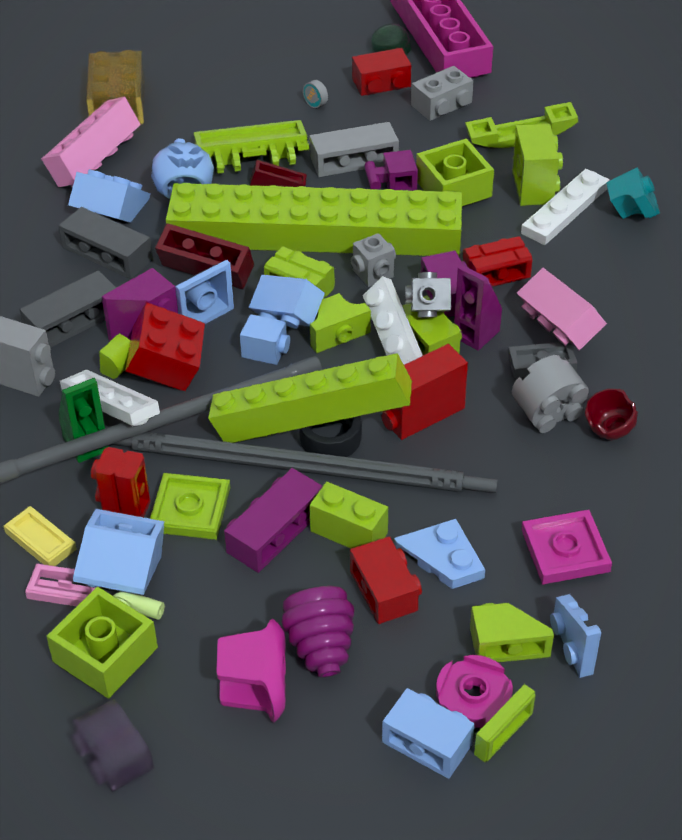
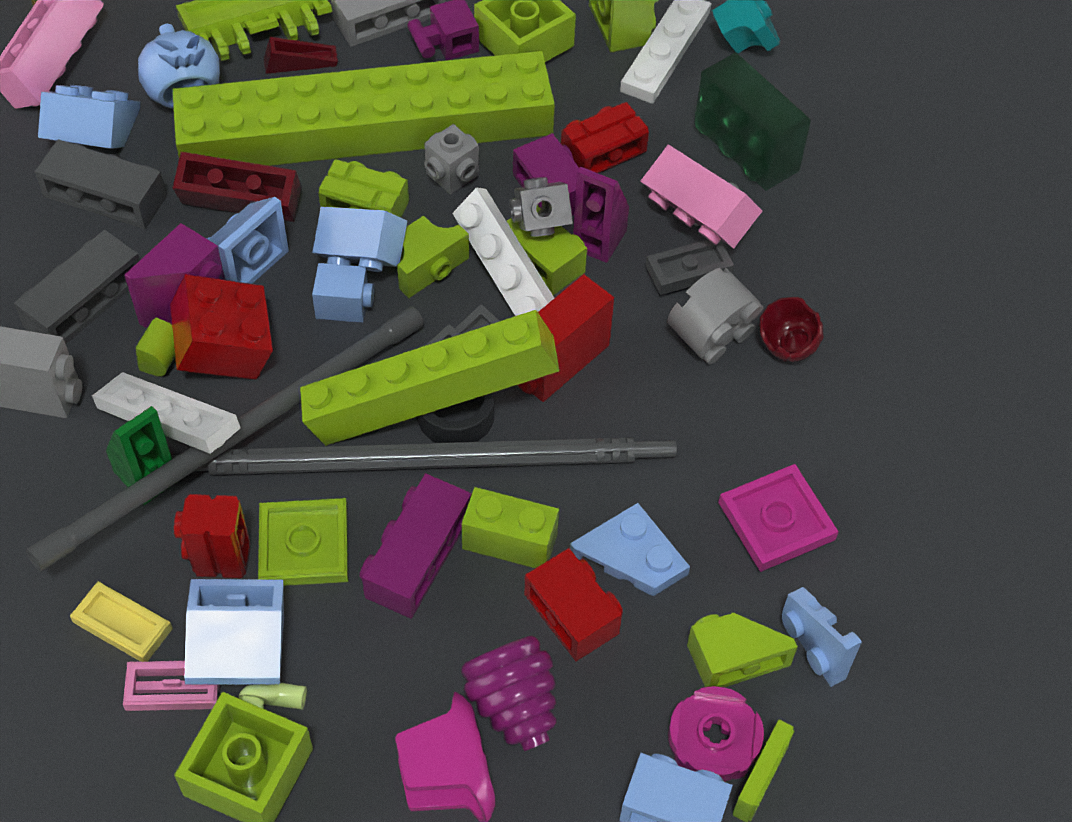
camera: 15 degrees left, 10 degrees up
(616, 262) = (751, 121): none -> clear green brick

